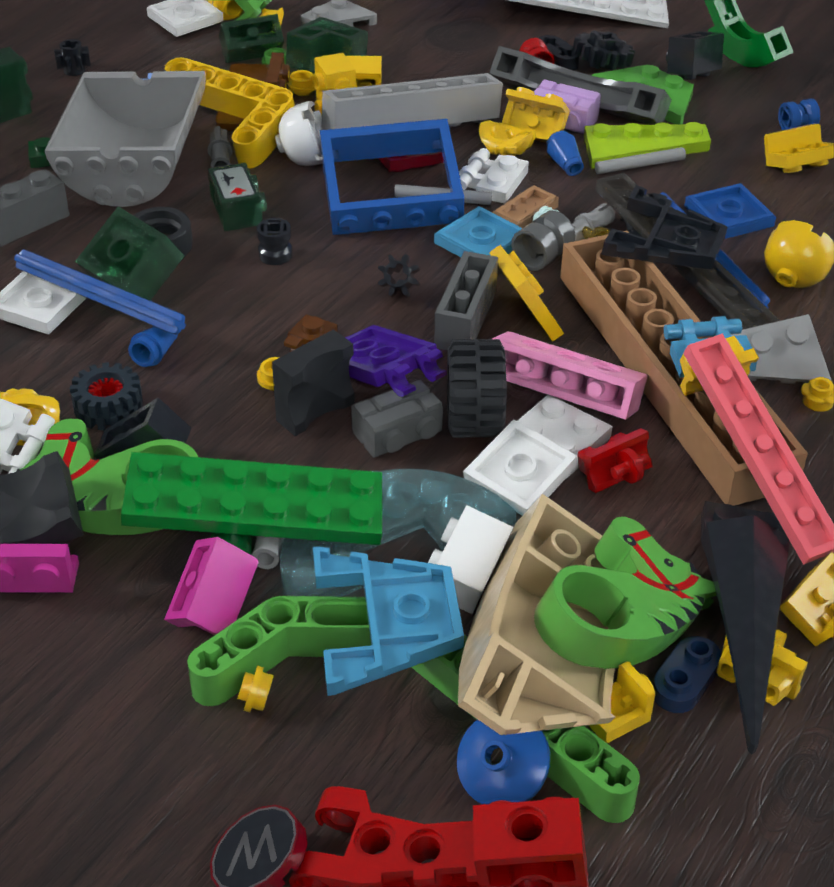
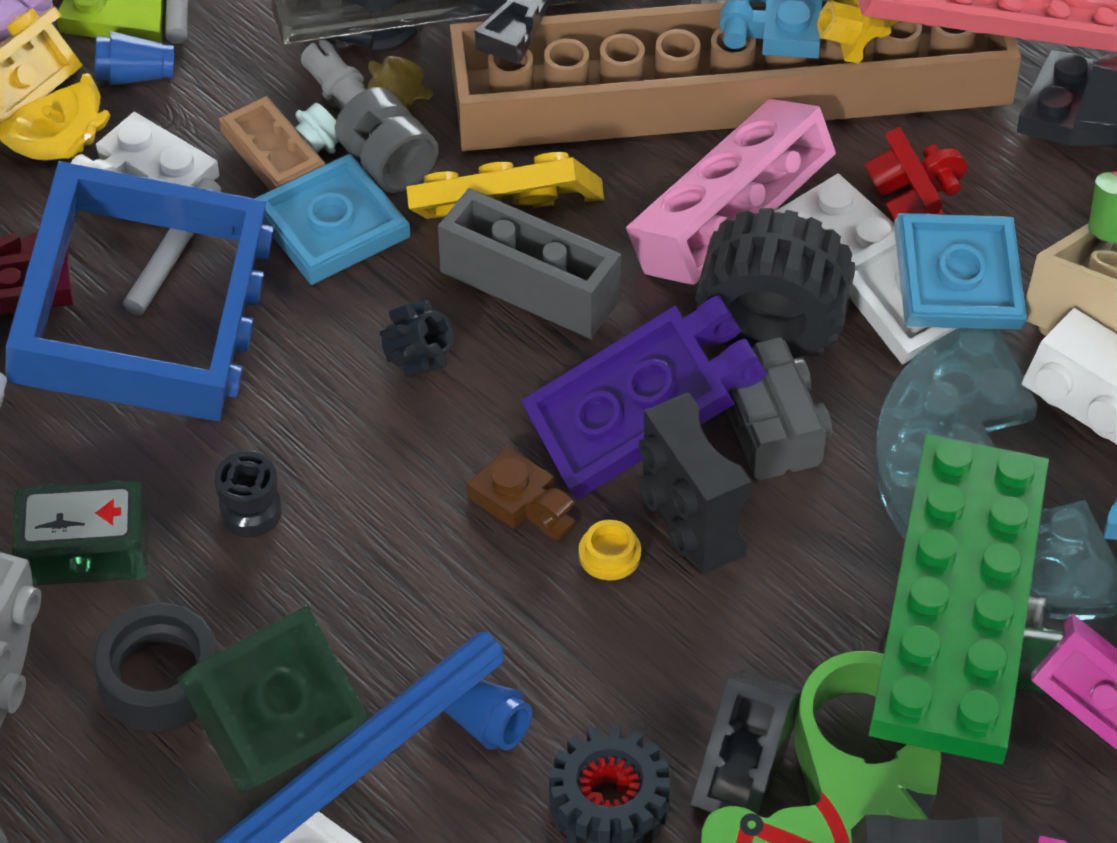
camera: 75 degrees left, 10 degrees up
(527, 468) = (959, 271): none -> dark azure plate

